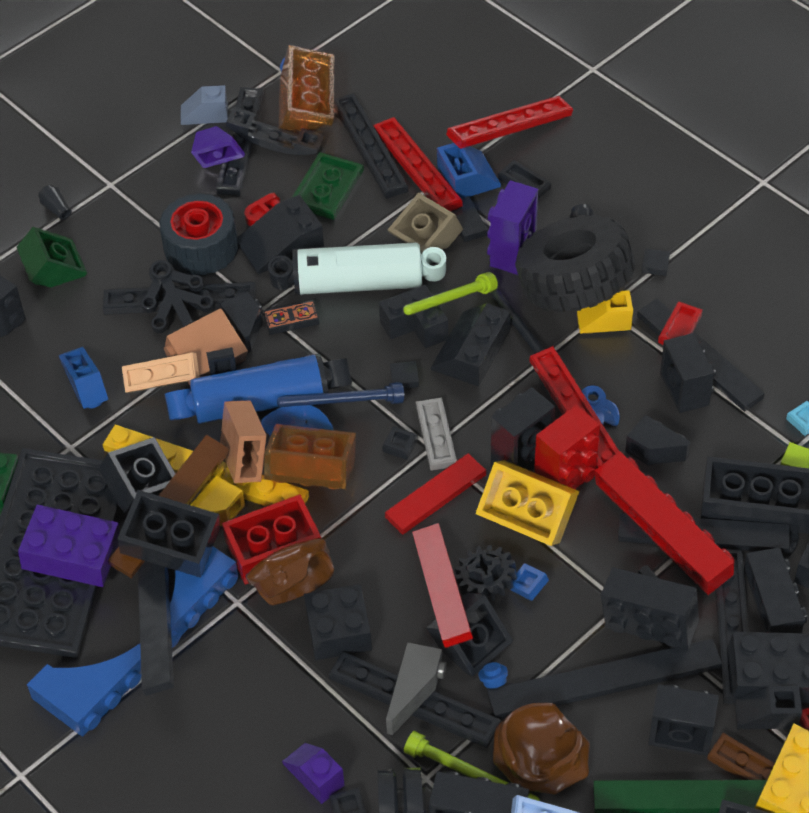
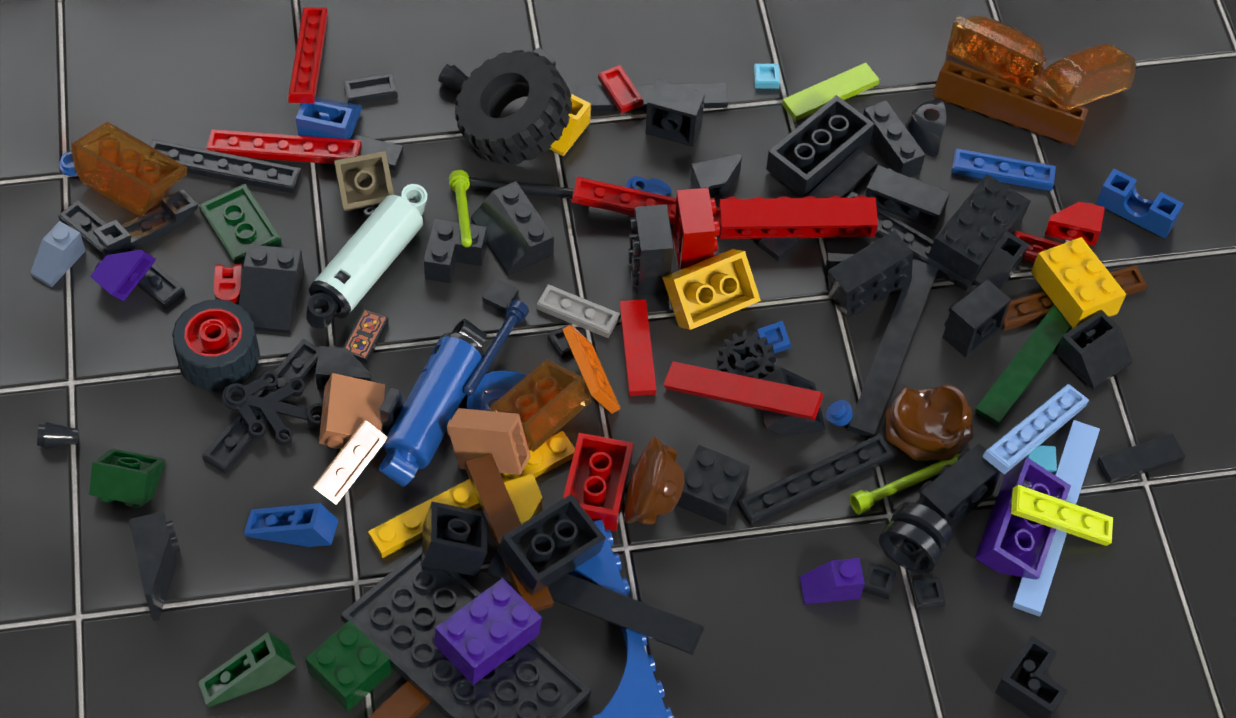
camera: 60 degrees left, 5 degrees up
(374, 469) = (591, 369): none -> orange tile
(415, 683) = (811, 462): dark grey slope -> none
(511, 224) = (435, 122): dark purple brick -> none

